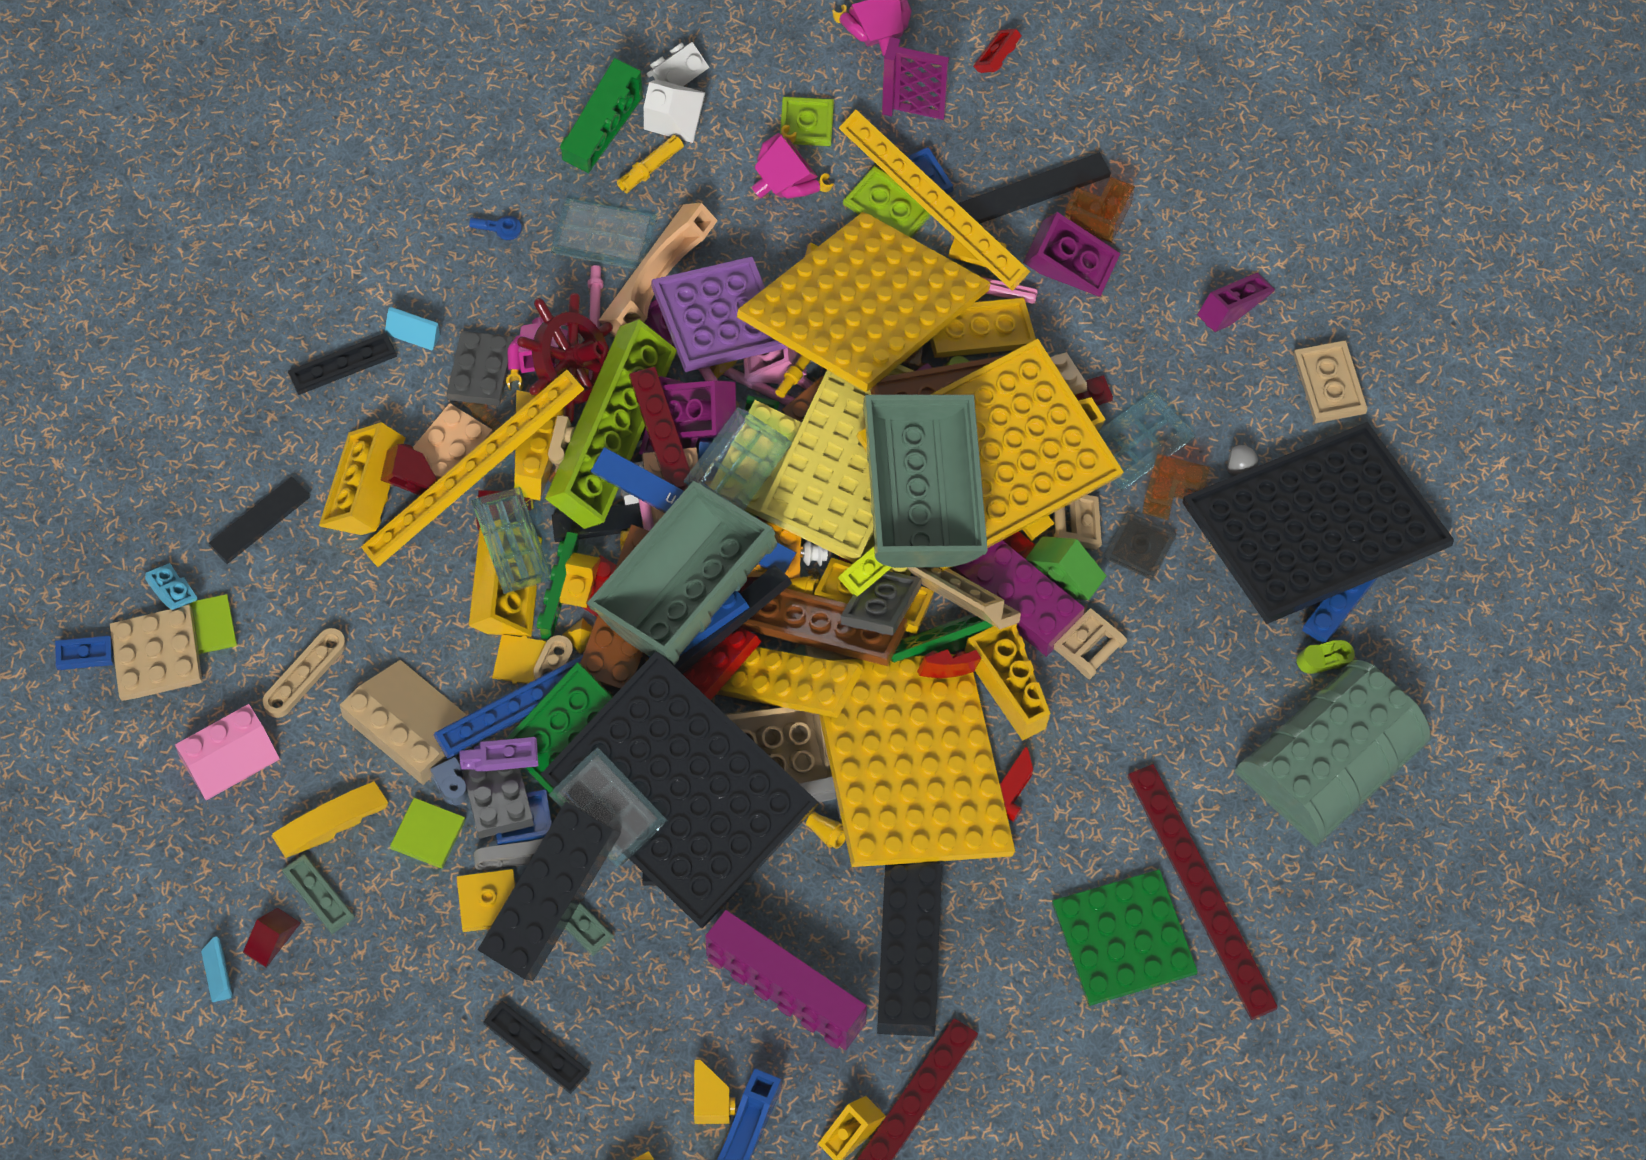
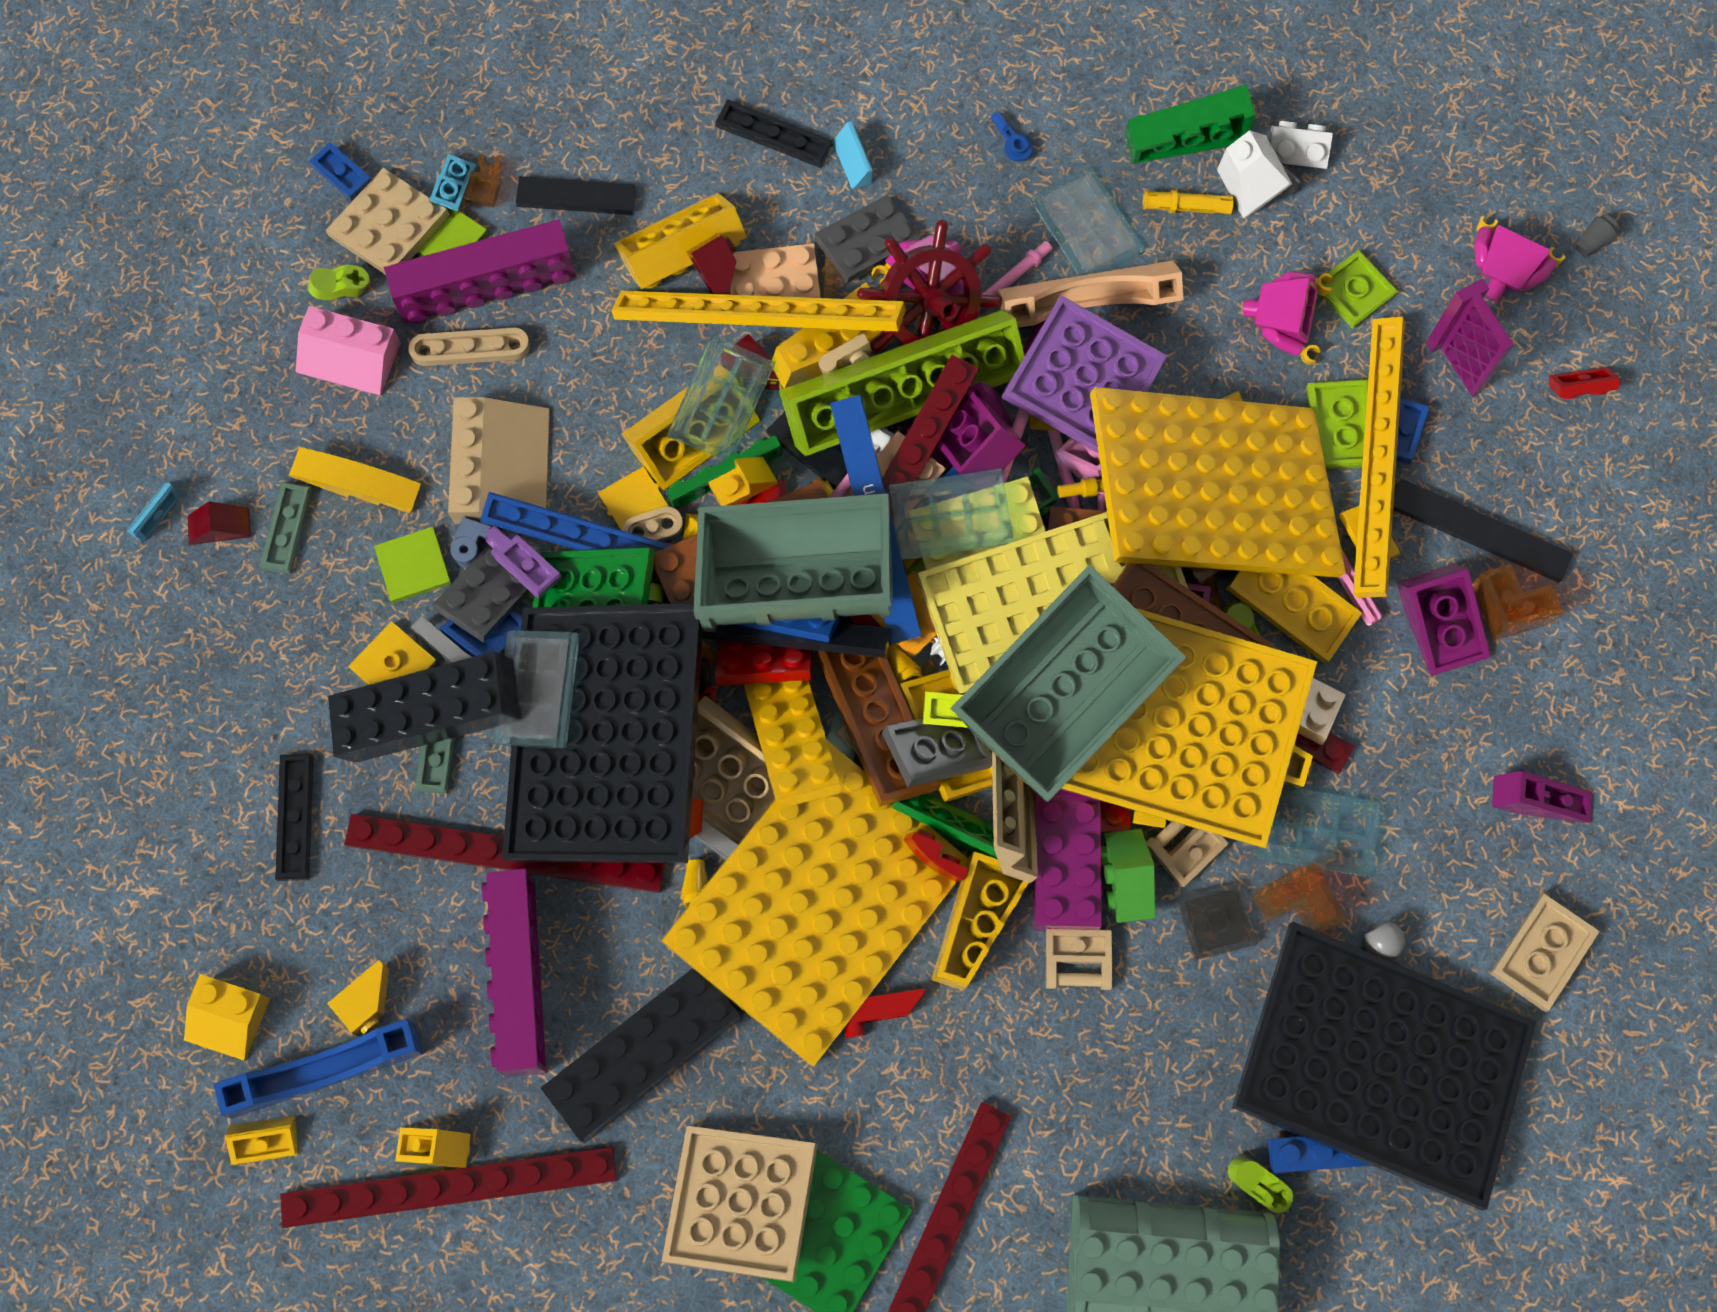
camera: 50 degrees right, 10 degrees up
(168, 718) = (338, 282): none -> lime piece
(192, 569) = (484, 186): none -> clear orange plate
(262, 618) = (480, 272): none -> magenta brick
(683, 939) = (486, 852): none -> dark red plate
(1063, 964) = (740, 1203): none -> tan plate

